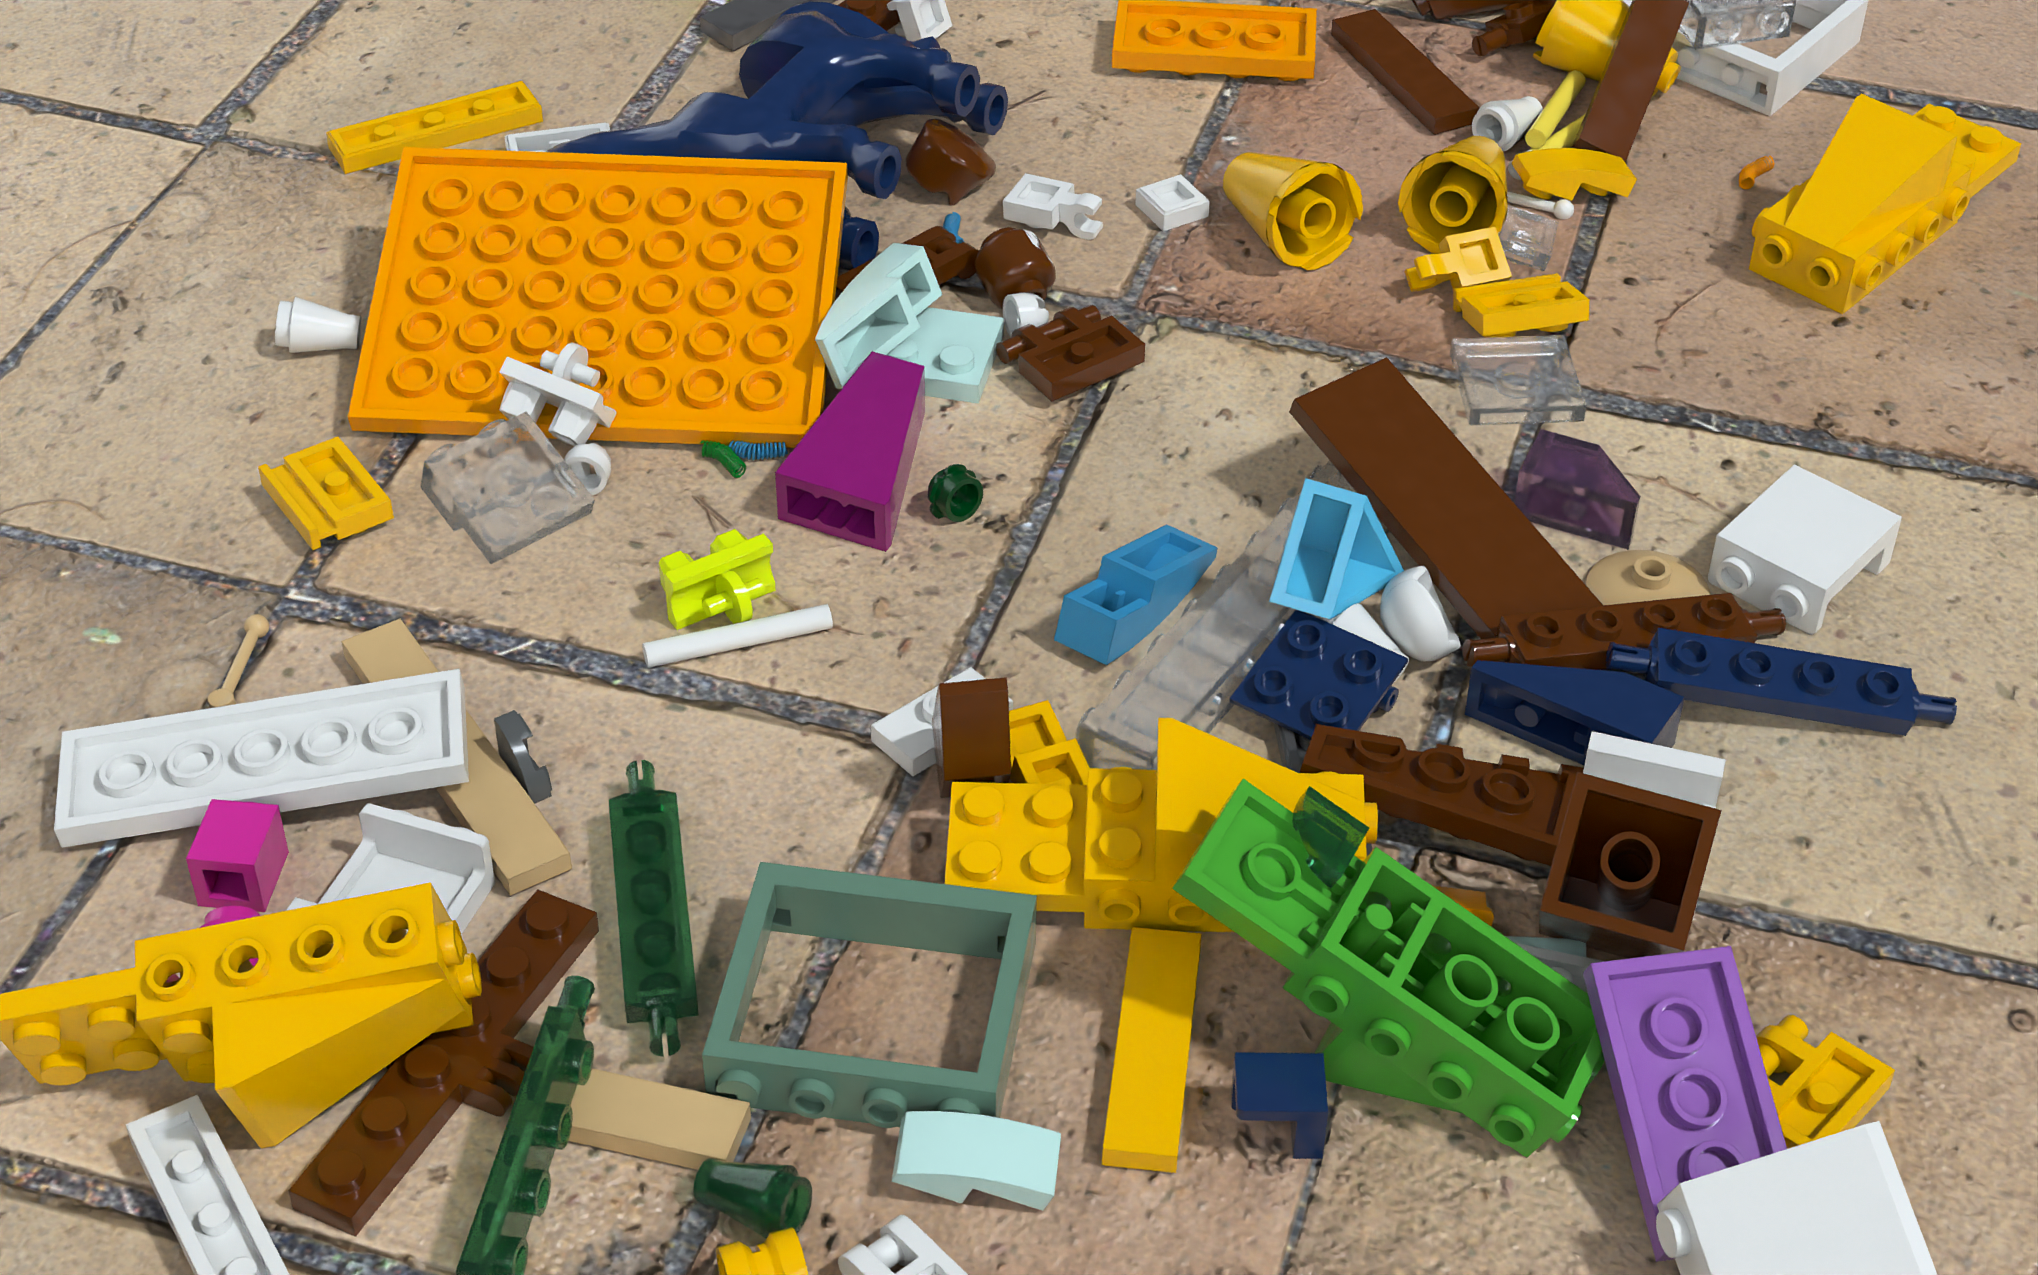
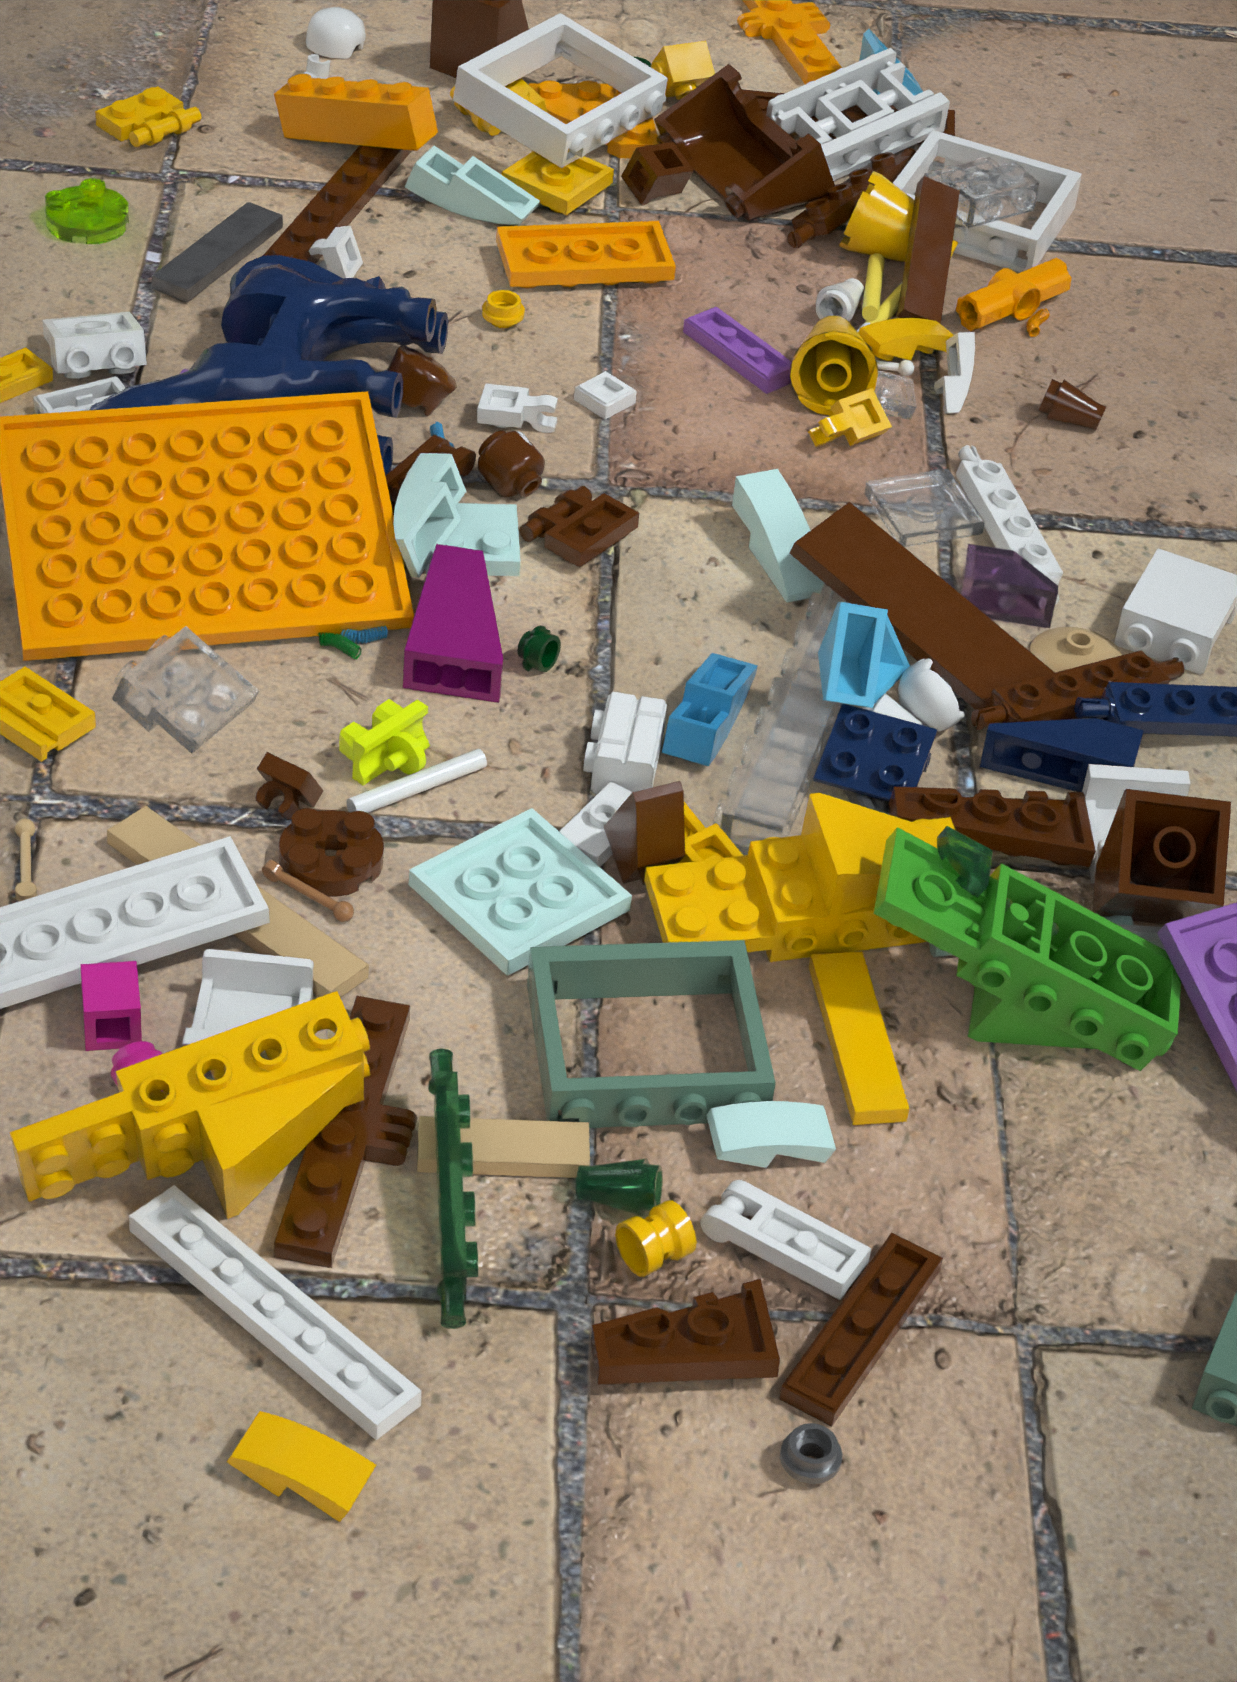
camera: 20 degrees left, 0 degrees up
(513, 749) = (292, 894): dark grey tile -> none
(574, 617) = (287, 781): none -> reddish brown tile
(575, 780) = (274, 872): none -> medium nougat hinge
(577, 406) = (180, 605): white hips -> none
(579, 461) = (249, 660): white hinge -> none
(586, 678) = (350, 834): none -> reddish brown plate
(596, 84) = (95, 343): none -> white plate
(652, 908) = (451, 994): clear green plate -> none
(798, 786) = (519, 890): none -> light aqua plate
(1007, 623) = (627, 743): none -> white brick
(1022, 310) = (529, 498): white hinge -> none
(1090, 91) = (503, 309): none -> yellow plate
(1284, 1090) = (973, 1049): dark blue panel -> none
(1295, 205) = (709, 385): yellow cone -> none
(1303, 359) = (775, 524): none -> light aqua slope
(1349, 146) = (739, 349): none -> medium lavender tile
(1404, 71) = (742, 266): reddish brown tile -> none
(1521, 305) = (907, 448): yellow plate -> none
(1613, 237) = (960, 364): none -> white slope
(1620, 406) = (1004, 512): none -> white plate
(1732, 134) = (1013, 294): none -> light orange piece
(1753, 274) = (1070, 405): none -> reddish brown cone
(1876, 200) = (1142, 335): yellow wedge -> none

